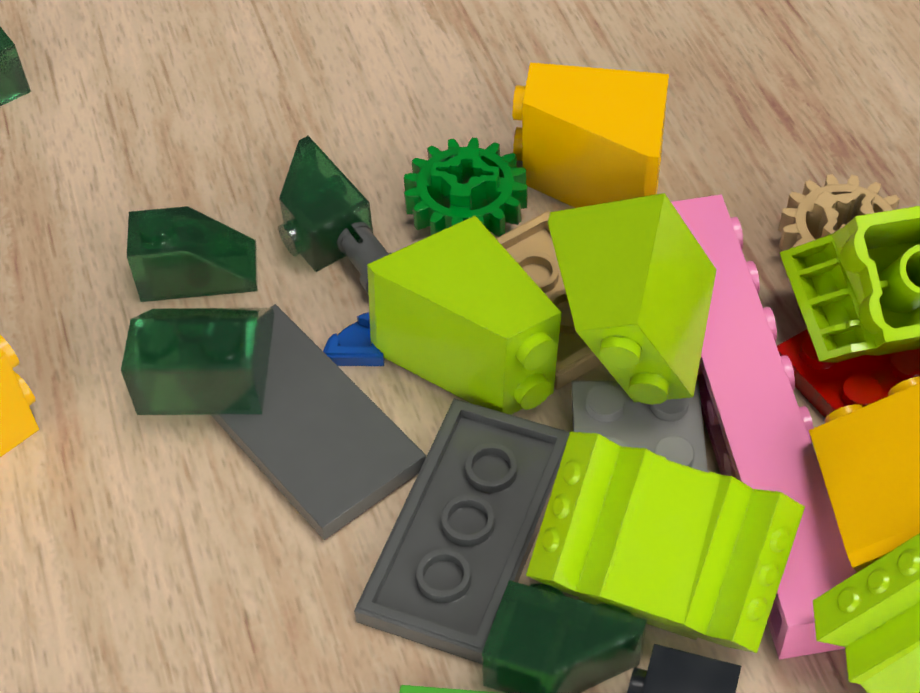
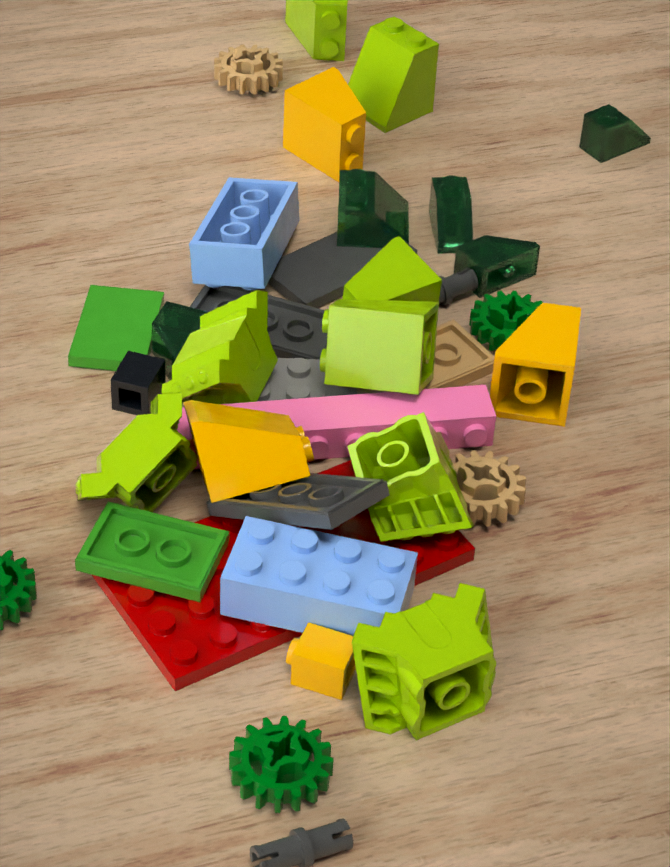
camera: 85 degrees right, 10 degrees down
(270, 529) = (244, 233): none -> light blue brick

